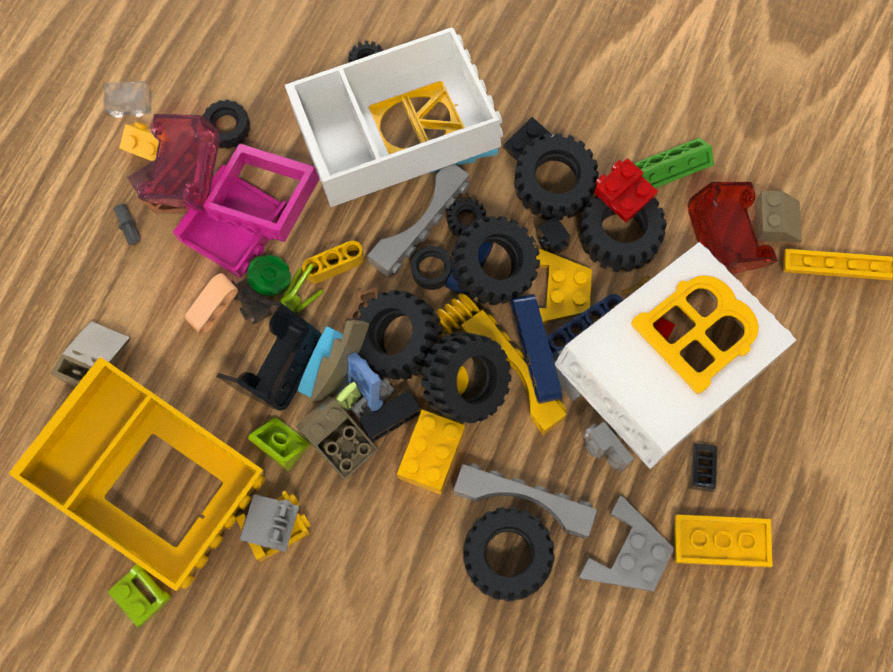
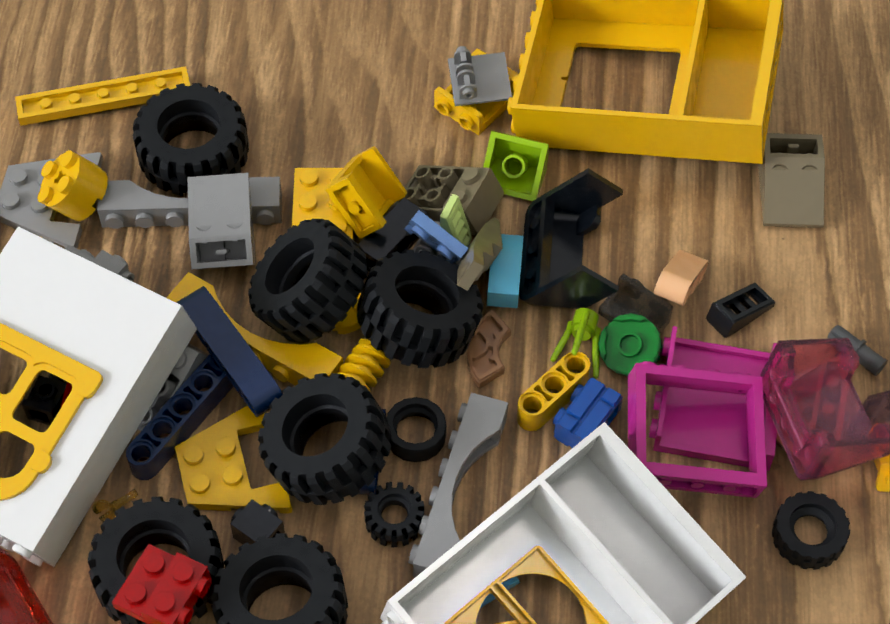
camera: 155 degrees right, 15 degrees down
(195, 283) = (726, 321): none -> black slope
(320, 236) = (589, 409): none -> blue brick
(399, 447) = (366, 191): none -> yellow panel
(510, 459) = (220, 221): none -> light grey slope
(564, 635) = (97, 96): none -> yellow plate
(610, 536) = (72, 185): none -> yellow brick

